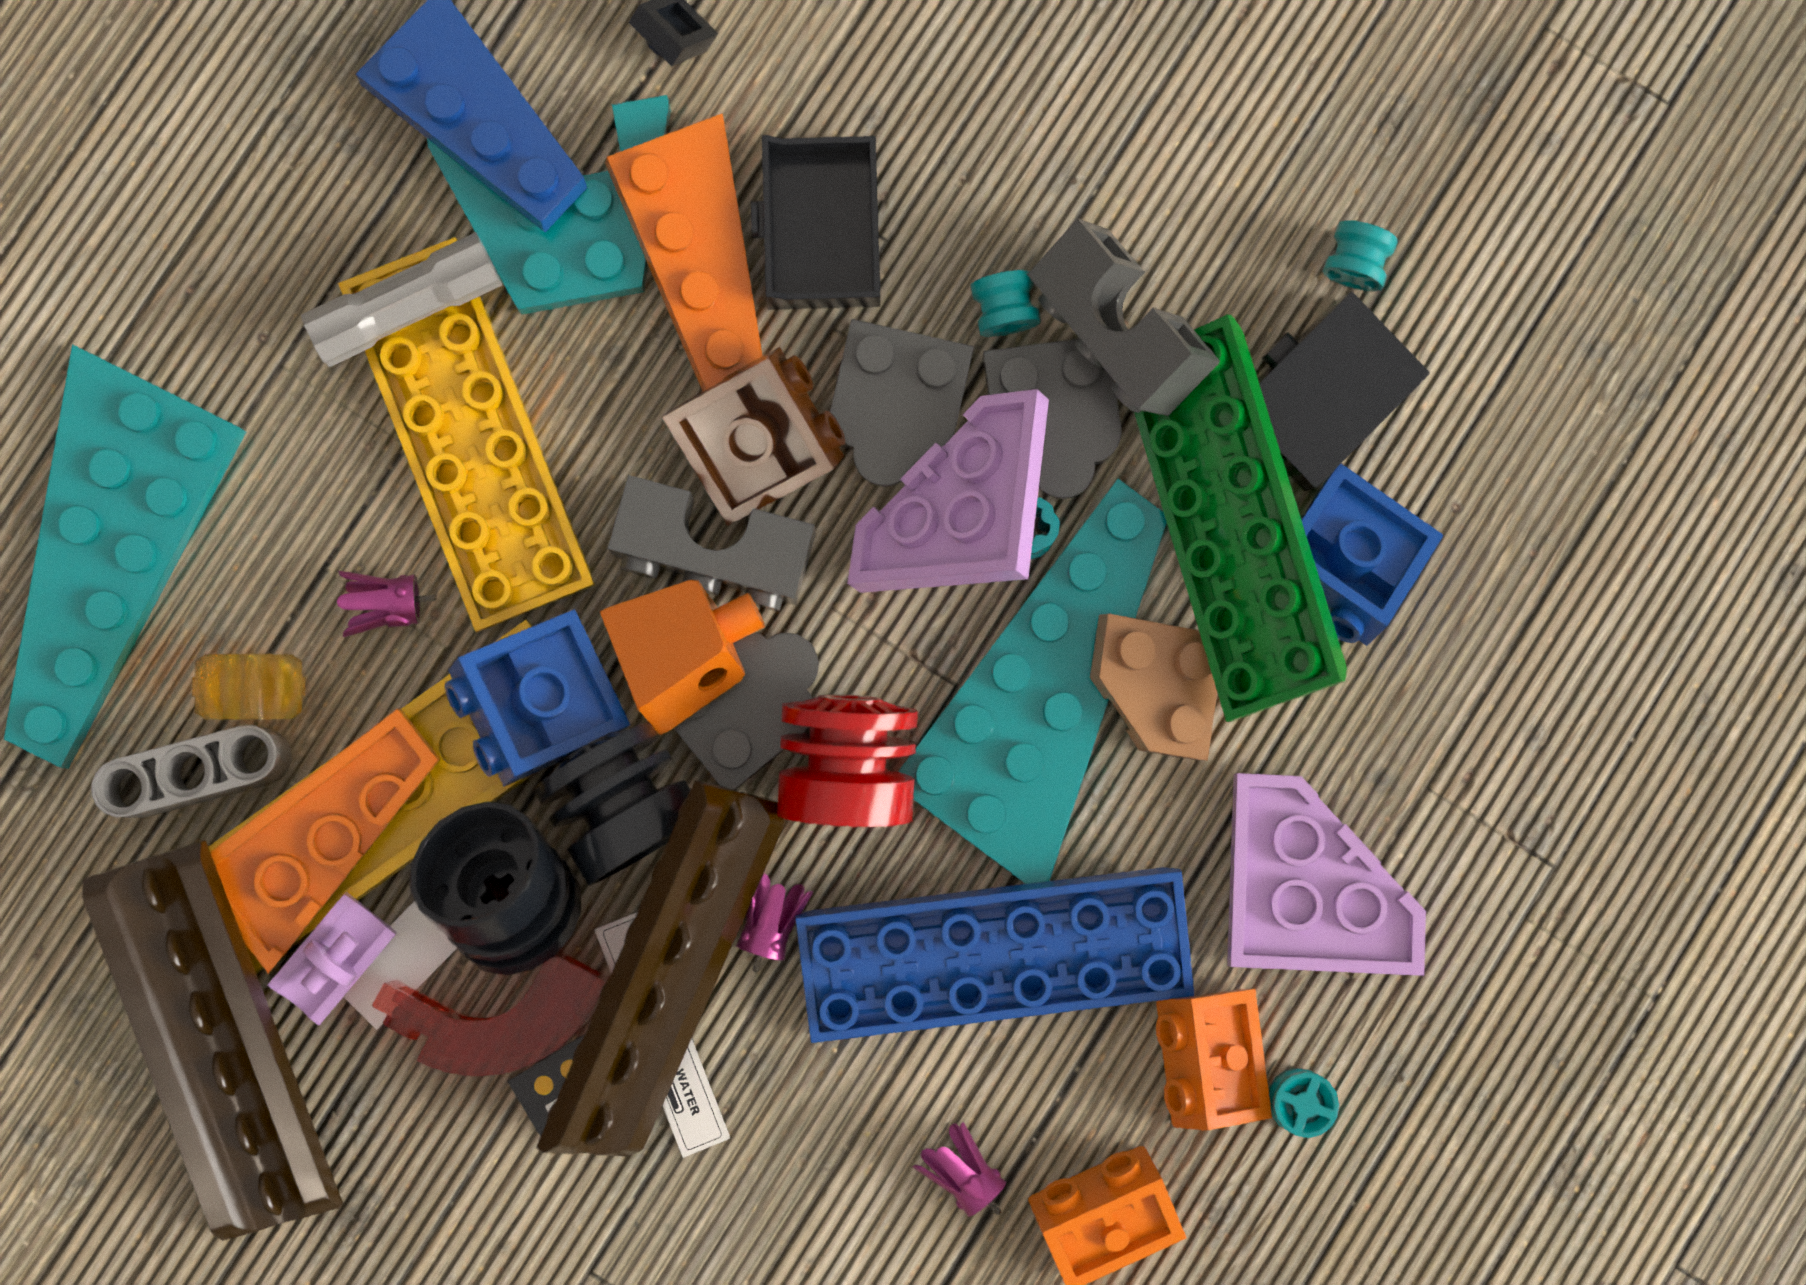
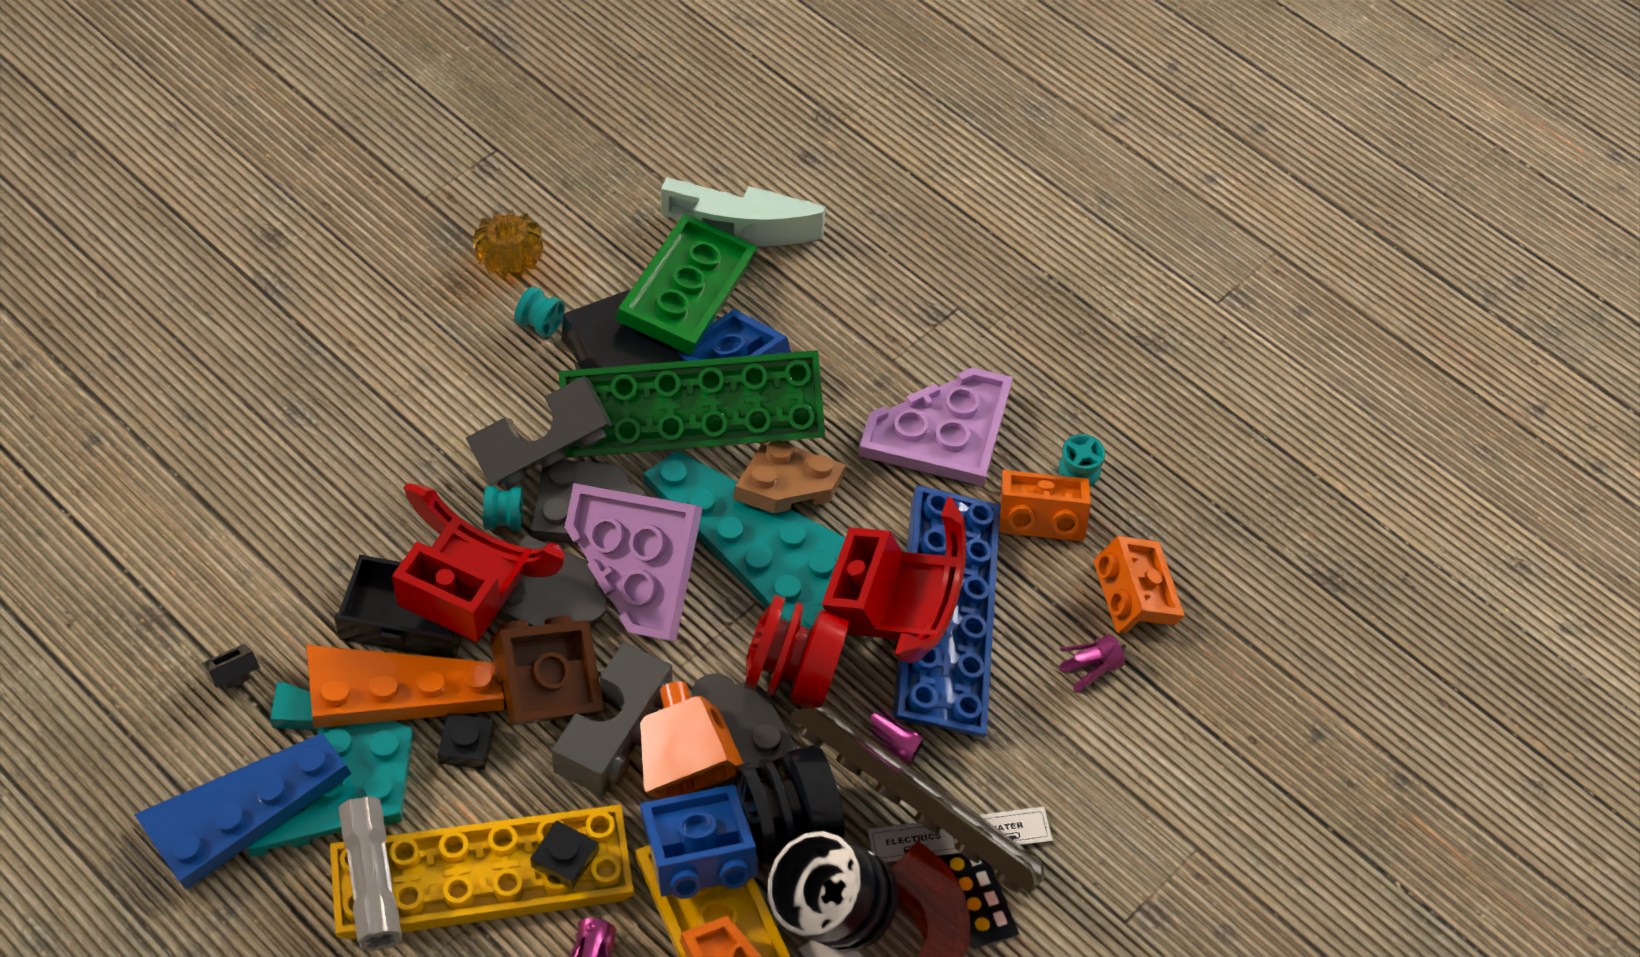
camera: 75 degrees left, 30 degrees down
(490, 532) = (564, 854): none -> black plate
(645, 361) = (466, 741): none -> black plate
(864, 282) = (465, 571): none -> red piece
(970, 884) = (898, 591): none -> red piece
(1462, 455) = (686, 284): none -> green plate
(1497, 172) = (508, 243): none -> clear yellow gear
(1627, 529) = (757, 217): none -> light aqua slope

